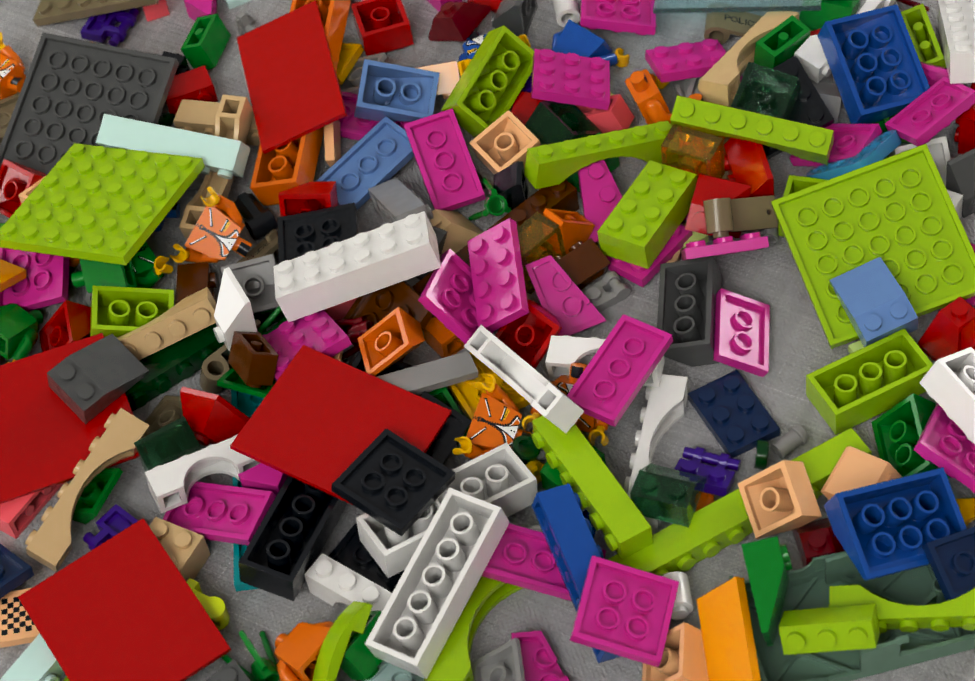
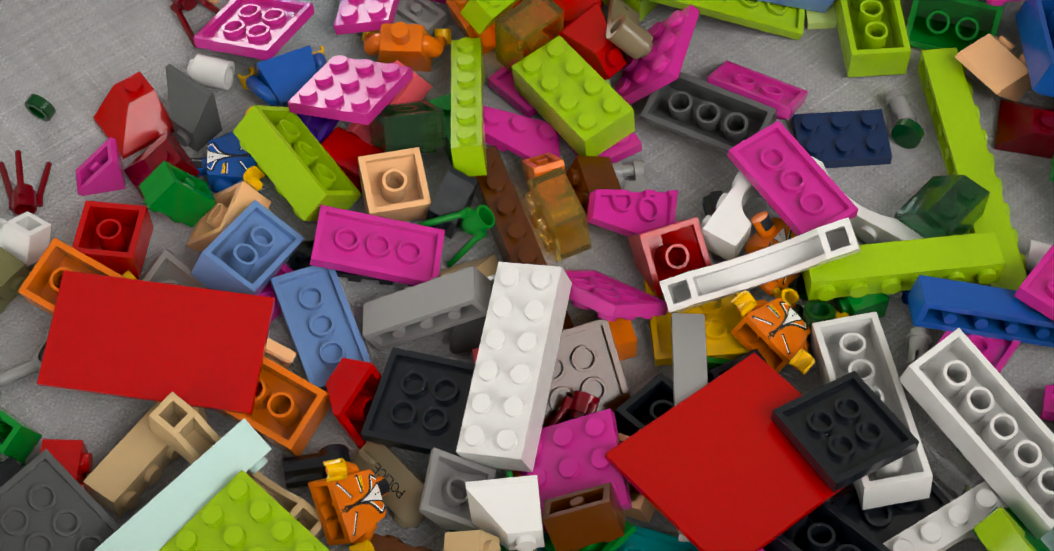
camera: 75 degrees left, 5 degrees up
(390, 341) = (639, 376): orange slope -> none
(432, 35) = (177, 194): none -> green brick
(498, 276) = (596, 245): dark pink plate -> none
(718, 478) = (910, 183): dark purple plate -> none
(779, 499) = (993, 128): light nougat slope -> none

